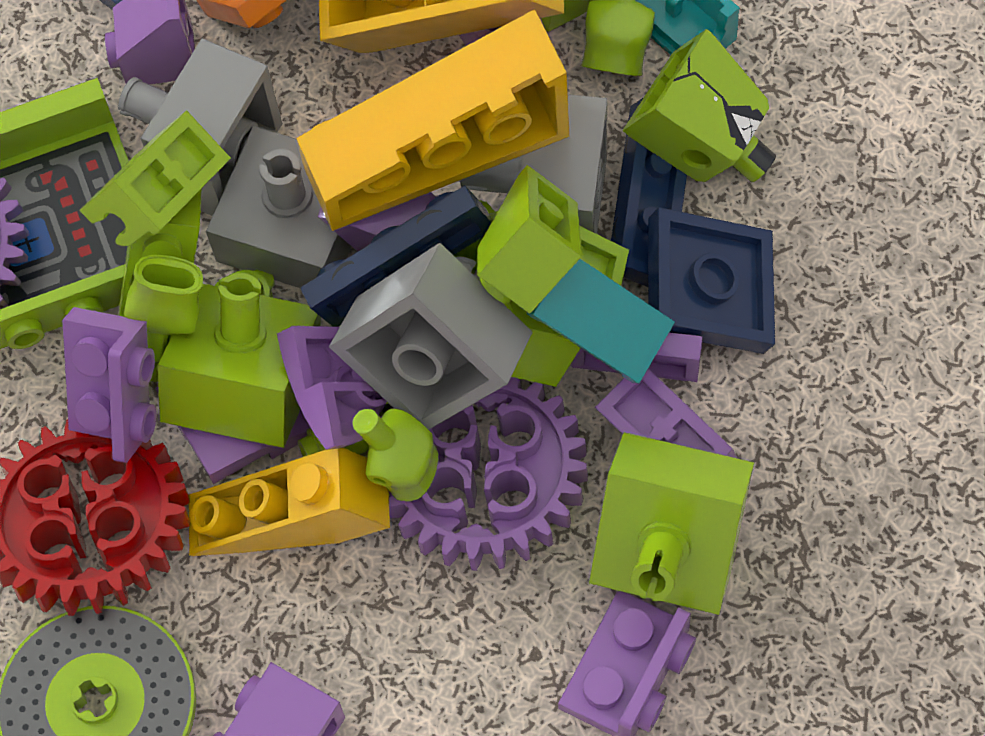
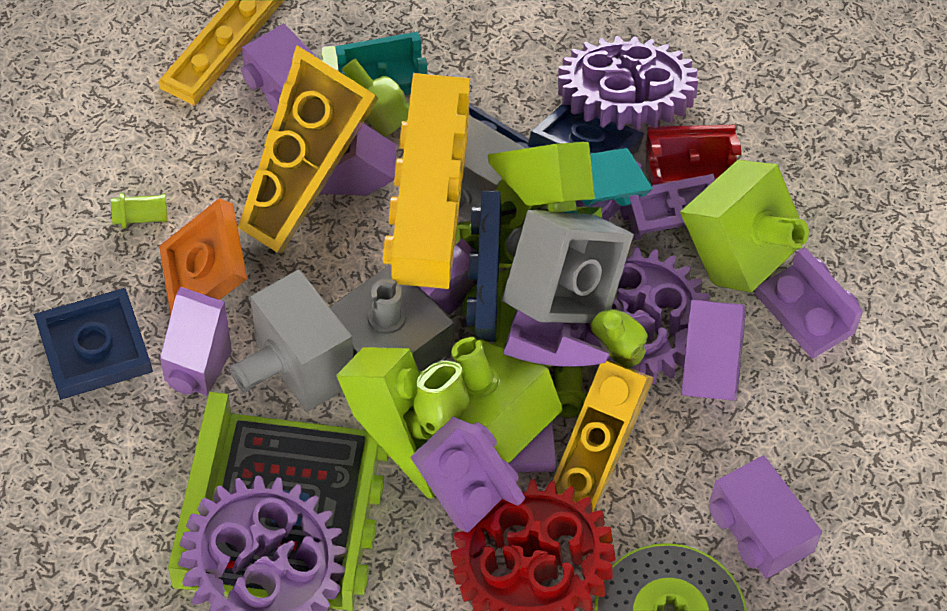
camera: 70 degrees left, 10 degrees down
(158, 179) = (358, 354): lime hinge -> none
(465, 578) = (714, 350): none -> medium lavender hinge
(703, 114) = (492, 84): lime torso -> none
(768, 417) = (690, 151): none -> red hinge
(869, 315) = (620, 89): none -> medium lavender gear

